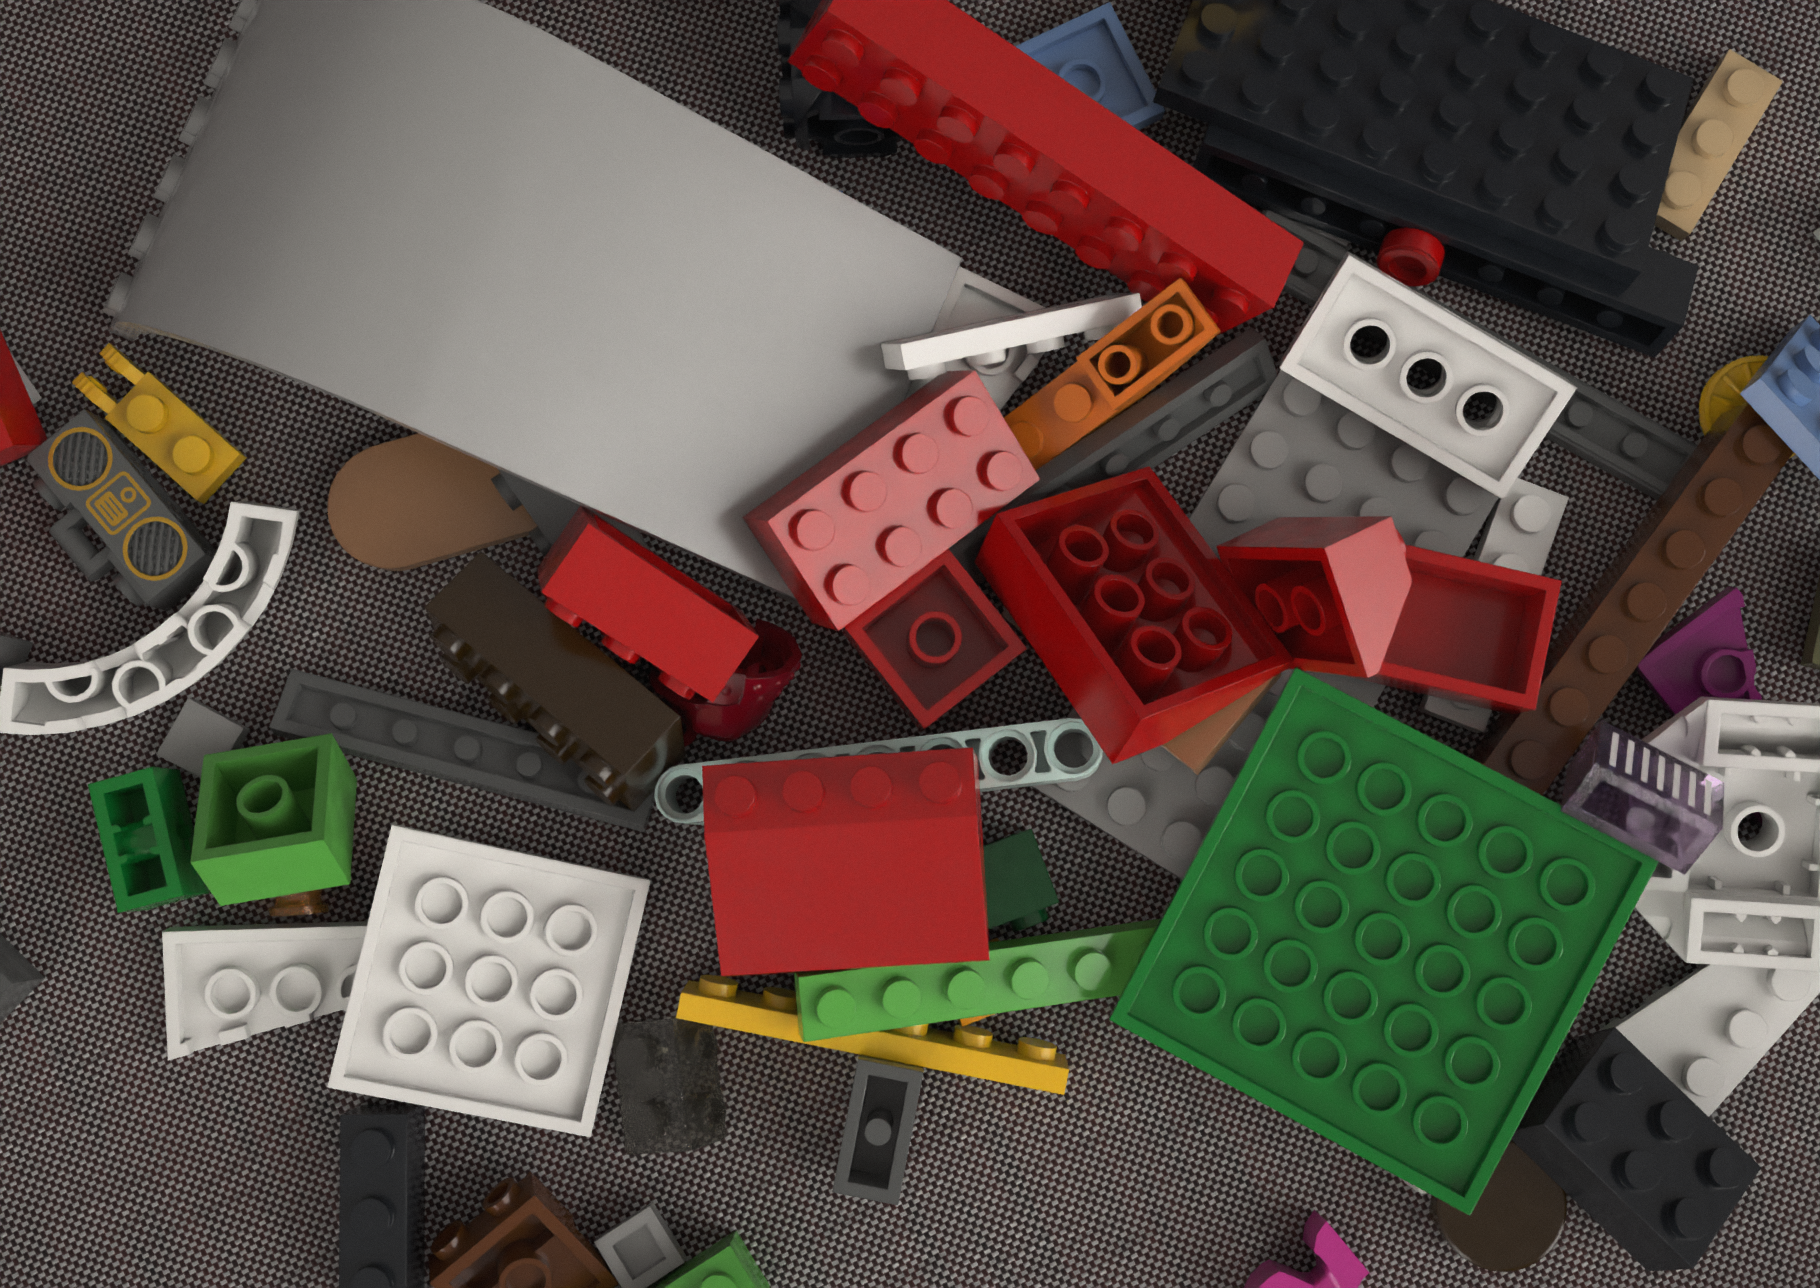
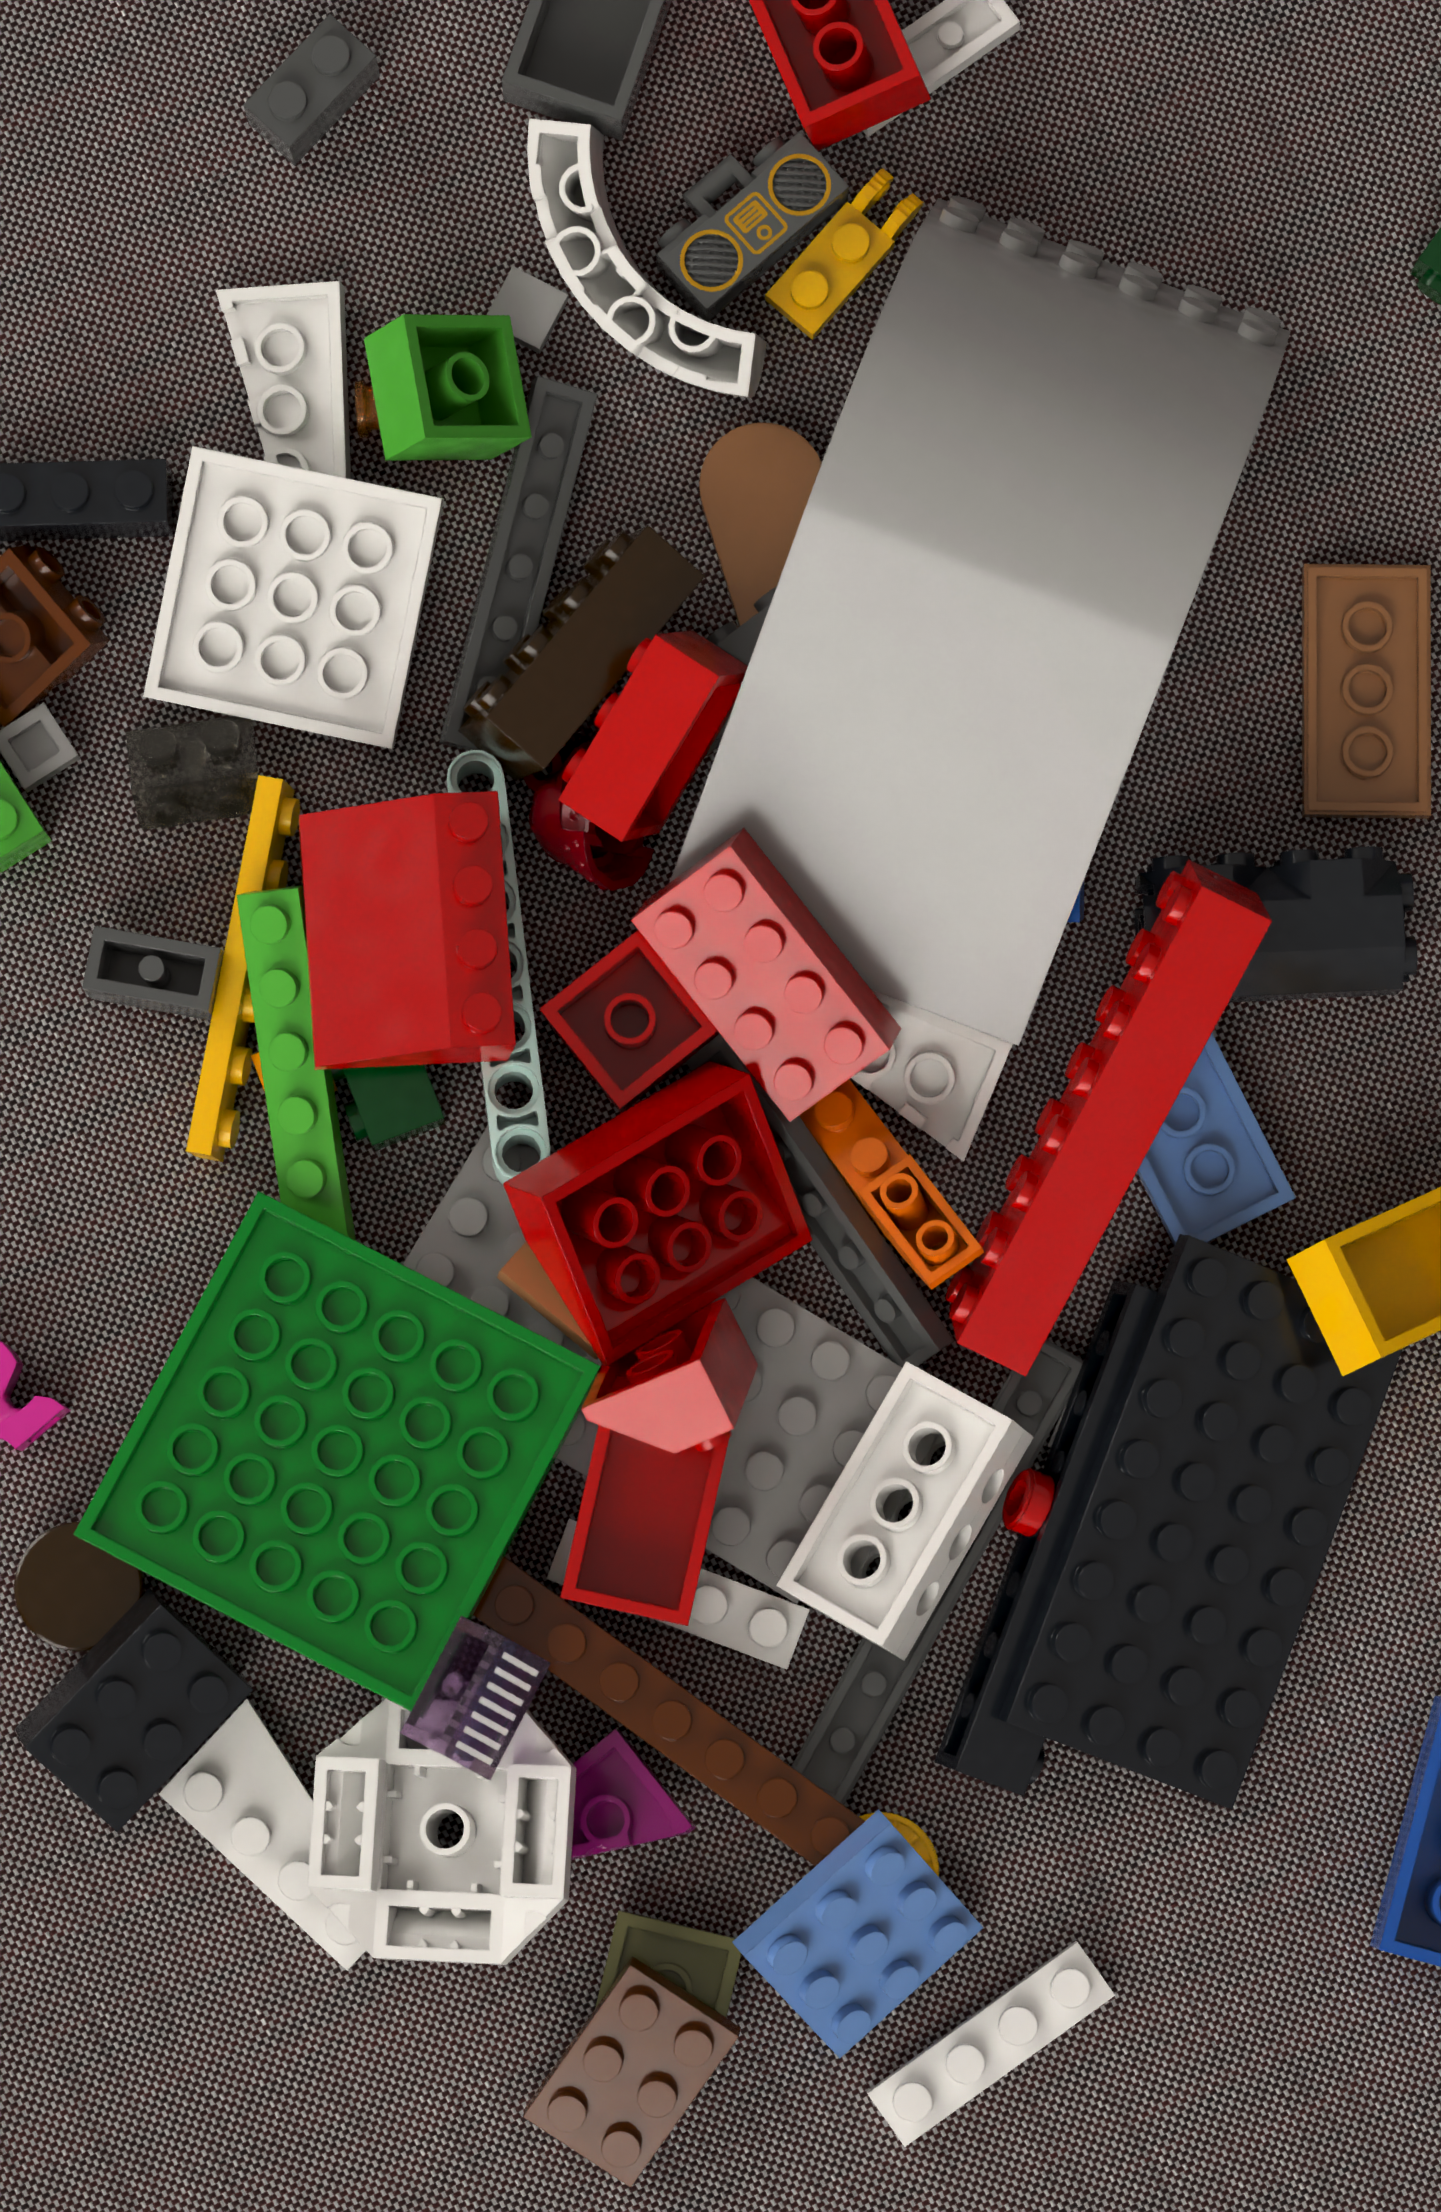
camera: 90 degrees right, 0 degrees up
(146, 838) = (428, 265): green brick -> none
(987, 340) = (931, 1070): white plate -> none
(1712, 139) = (1165, 1826): tan plate -> none

